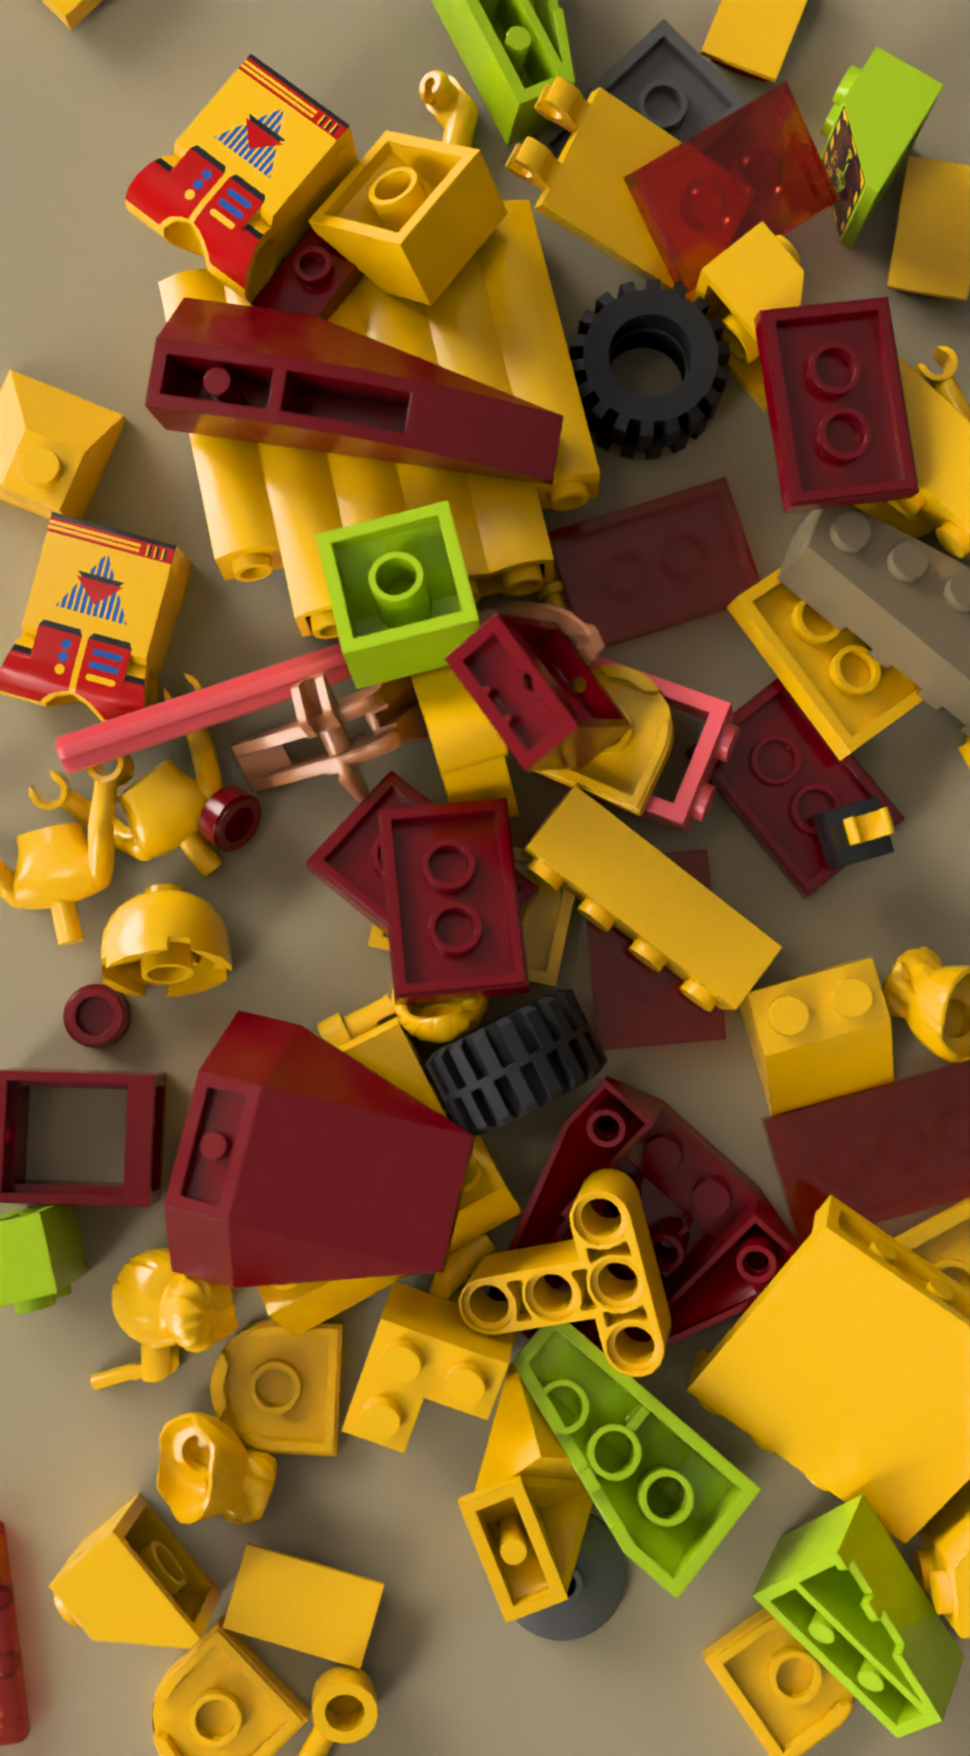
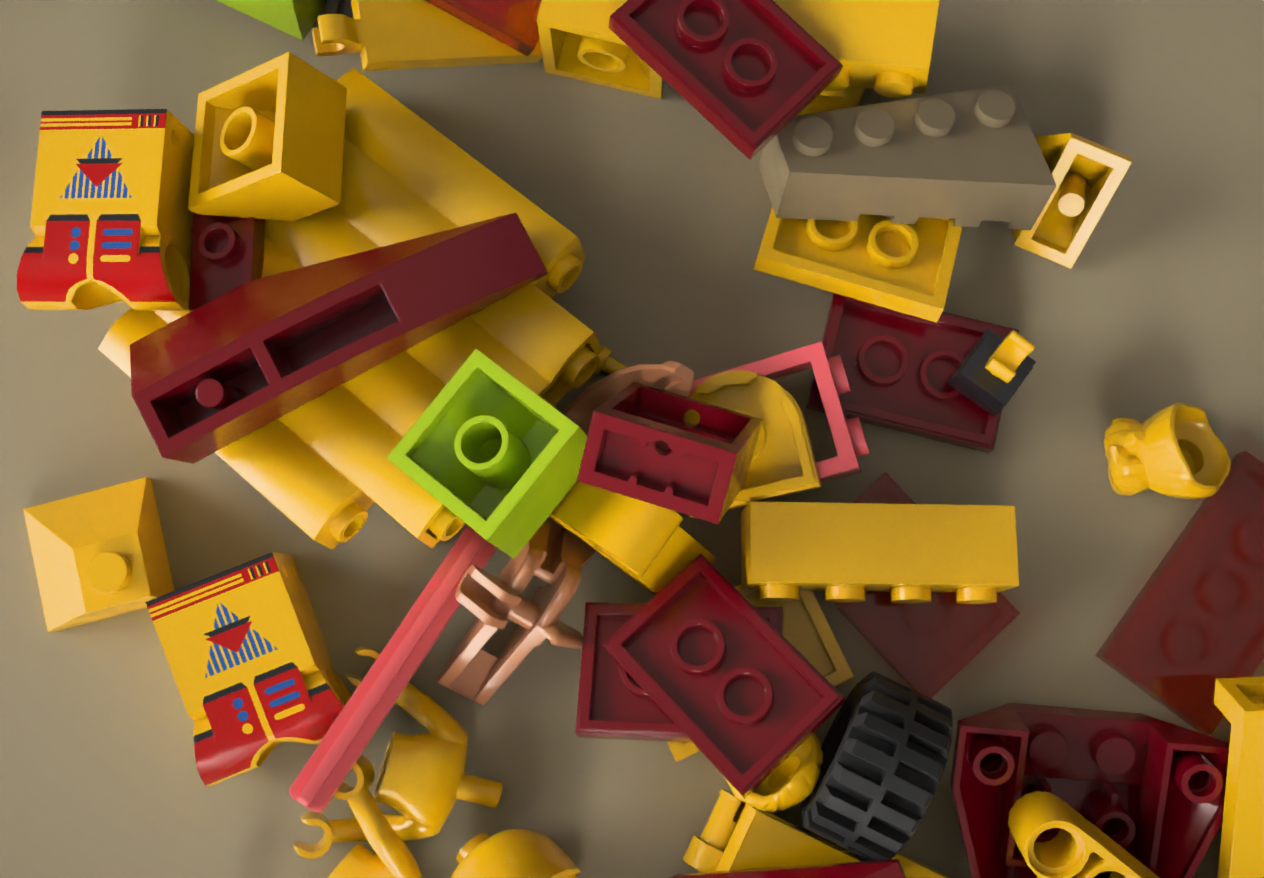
camera: 35 degrees left, 5 degrees down
(229, 818) = (482, 743): dark red tile -> none
(450, 107) = (233, 42): yellow arm -> none
(655, 563) = (669, 275): clear red tile -> none
(657, 322) = (549, 84): black tyre -> none
(820, 1035) = (1091, 550): yellow slope -> none

